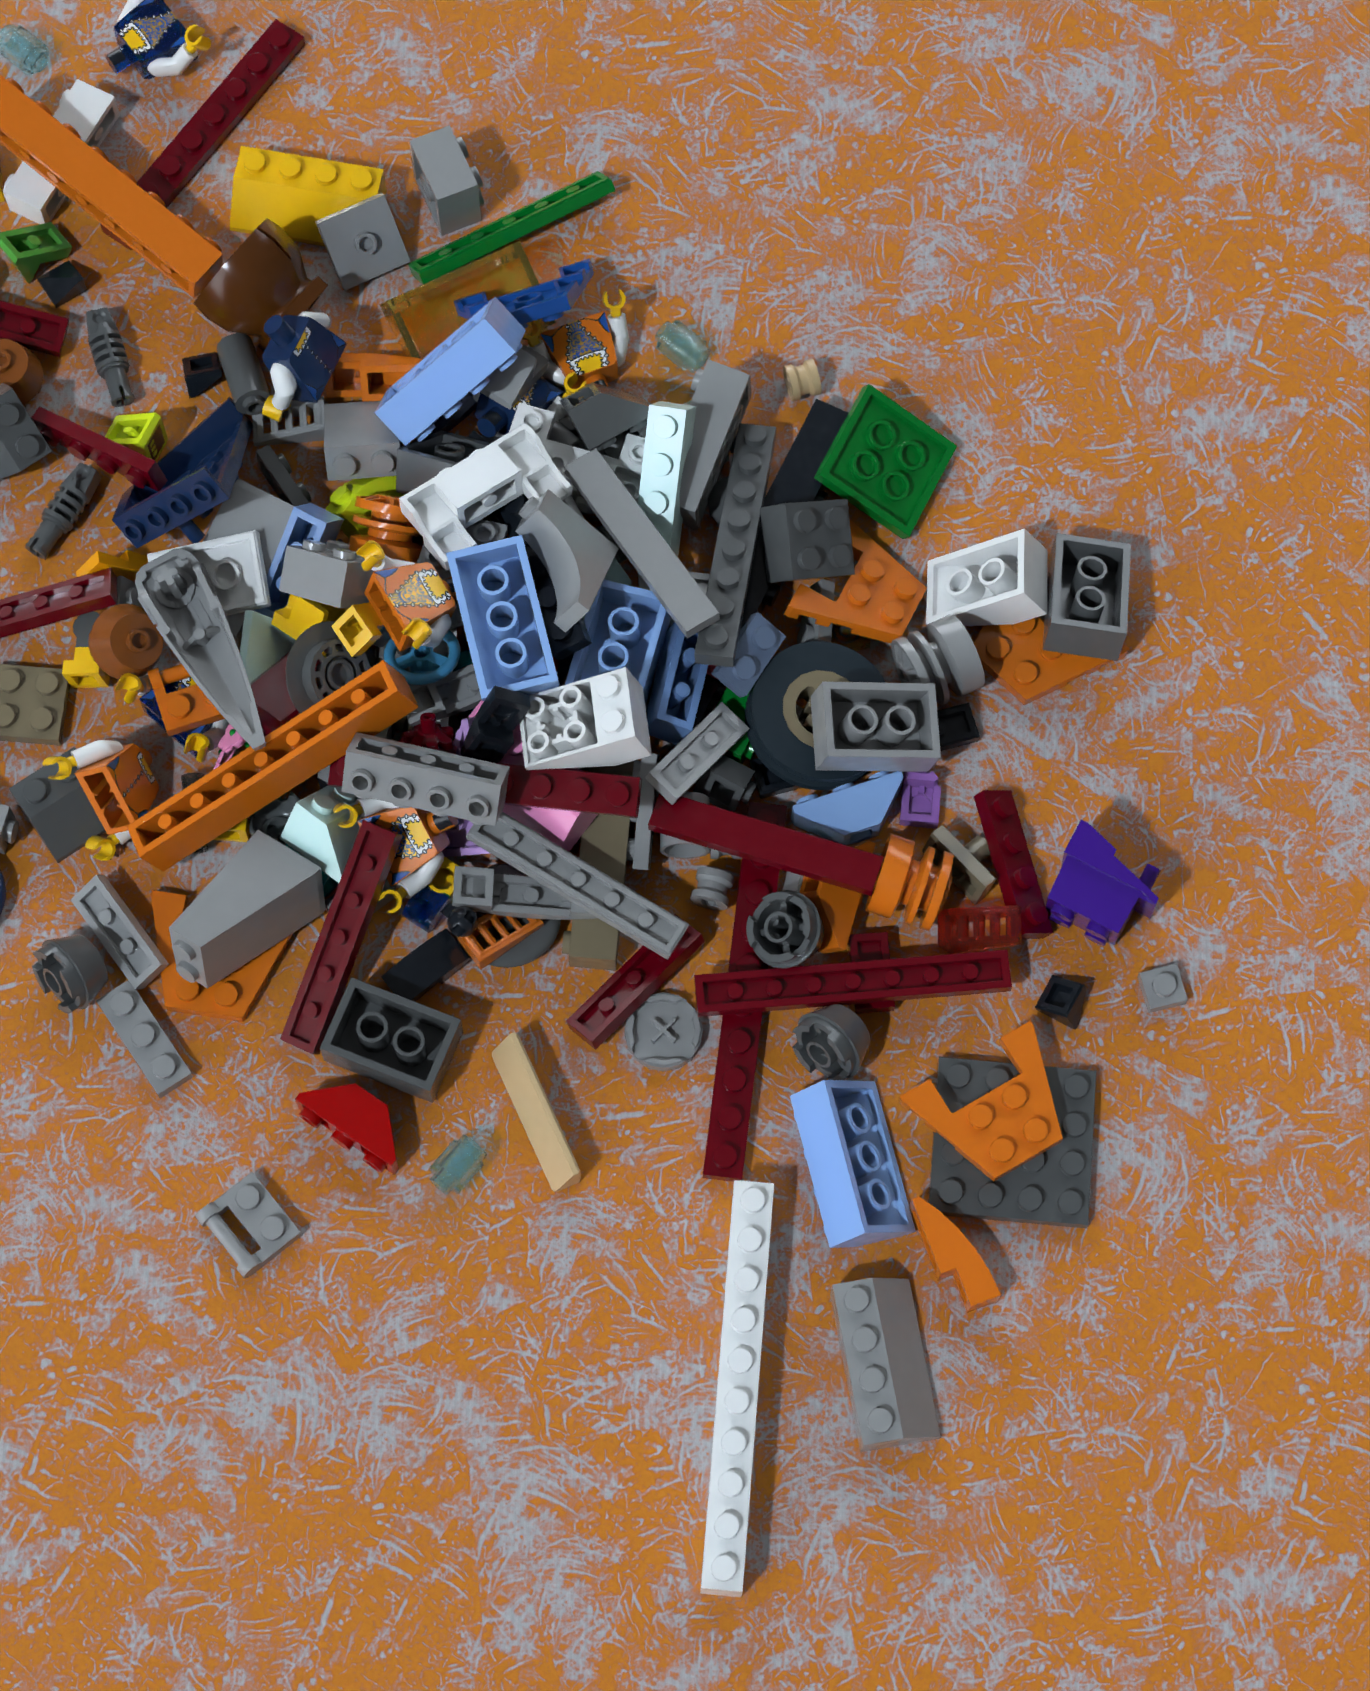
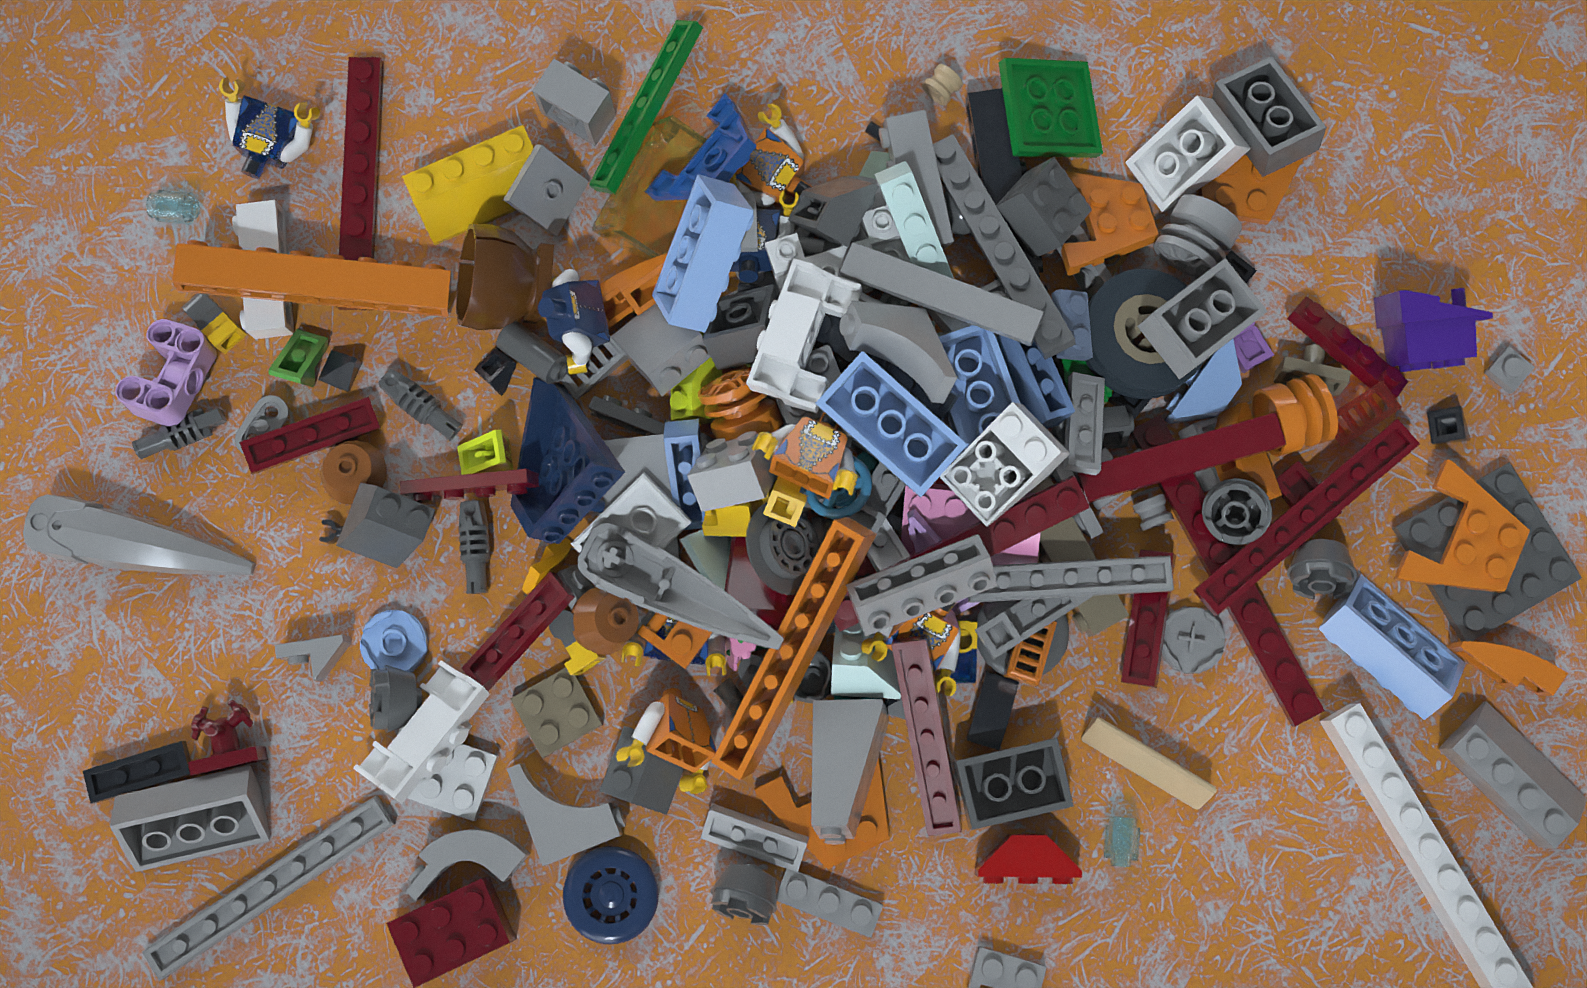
camera: 30 degrees left, 10 degrees up
(430, 734) = (890, 546): dark red plant -> none
(461, 920) = (1007, 665): black arm -> none
(494, 725) = (938, 511): black slope -> none
(682, 346) = (837, 116): clear light blue brick -> none

